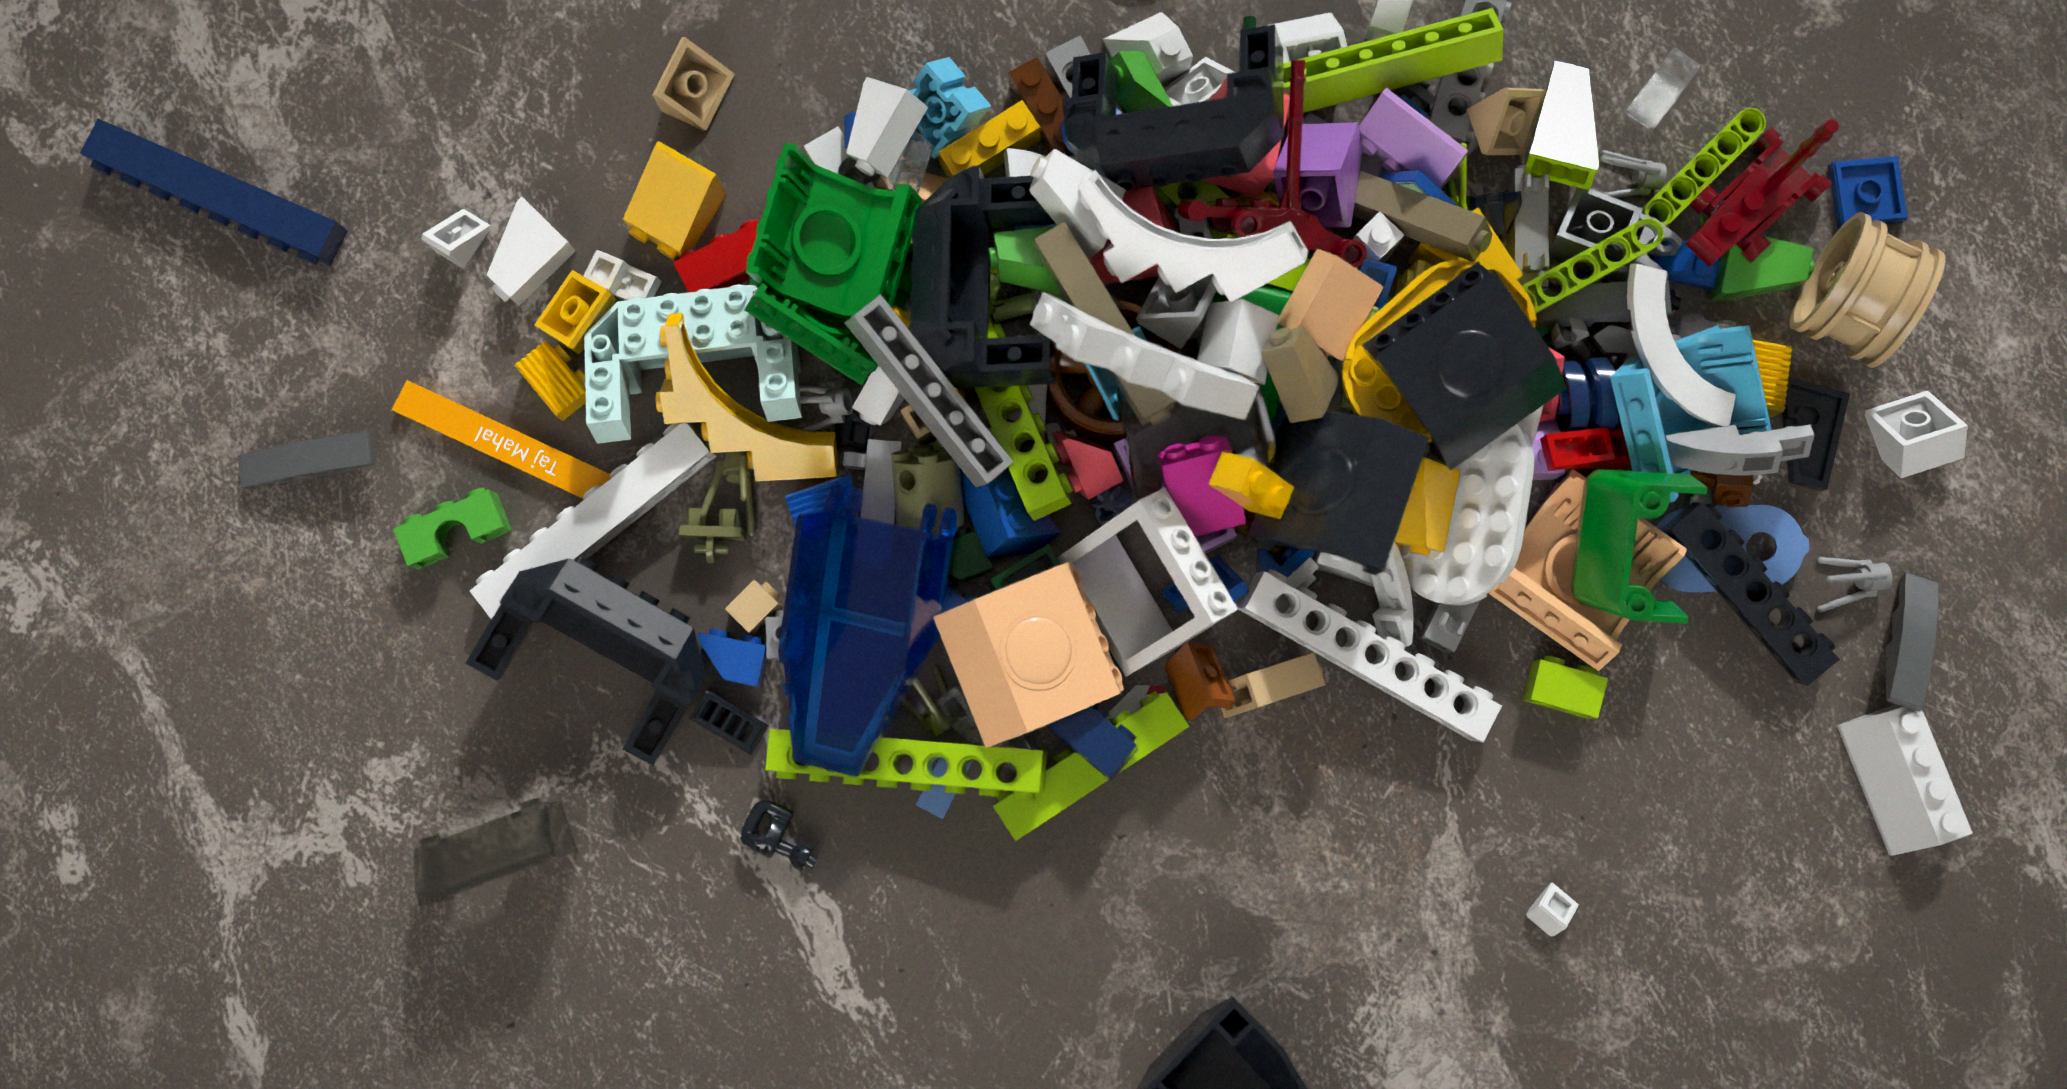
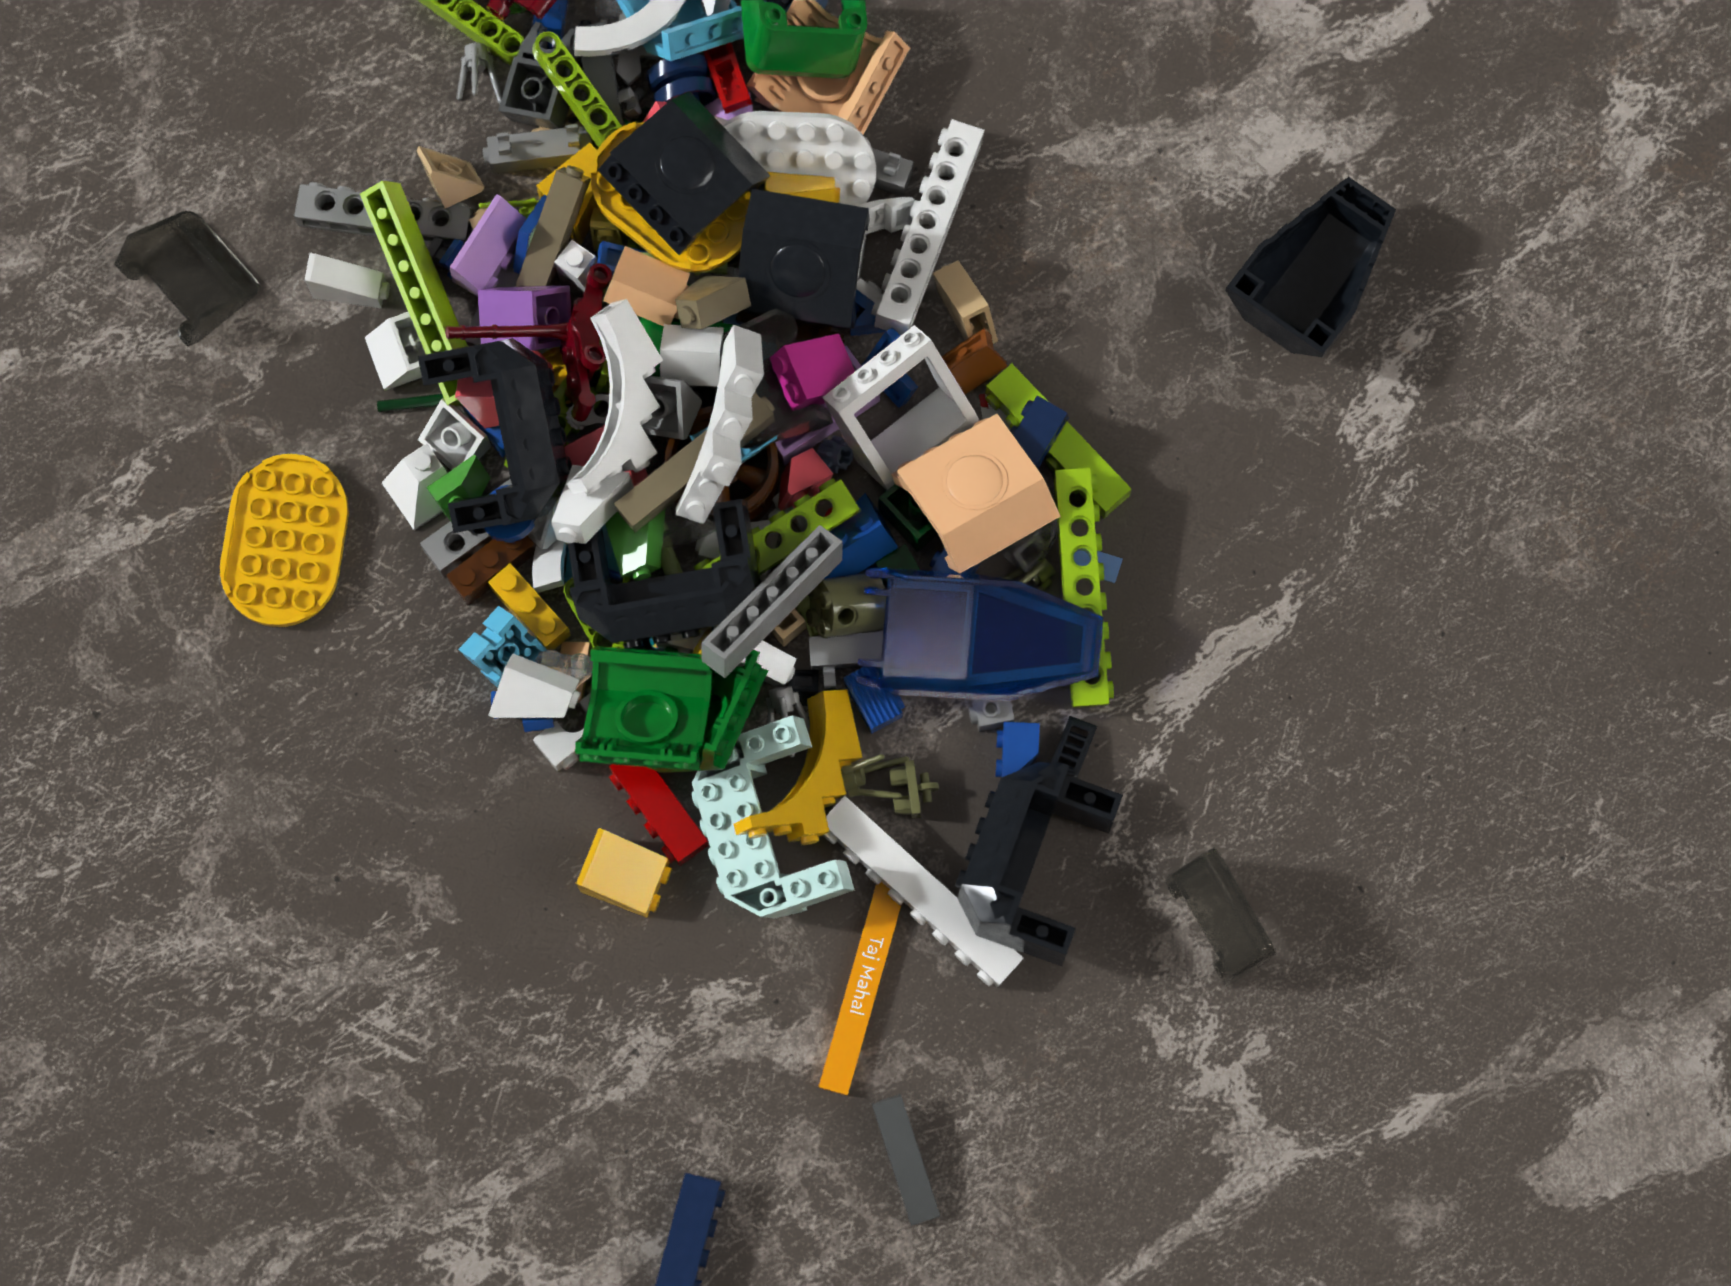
camera: 100 degrees left, 5 degrees down
(424, 536) = (957, 1041): bright green arch -> none
(457, 237) = (679, 1065): white slope -> none
(526, 254) = (687, 999): white slope -> none
(554, 379) = (798, 951): yellow brick -> none
(575, 310) = (737, 936): yellow slope -> none
(621, 278) = (697, 913): white slope -> none
(692, 85) = (510, 879): tan slope -> none
(754, 605) = (970, 741): tan brick -> none
(771, 841) = (1161, 692): black piece -> none
(1251, 485) = (811, 325): yellow brick -> none
(1498, 208) = (526, 176): black brick -> none
(1552, 910) = (1109, 63): white slope -> none
(1565, 130) = (451, 127): slope -> none
(1565, 688) = (927, 74): lime brick -> none
(1662, 88) = (399, 54): clear slope -> none

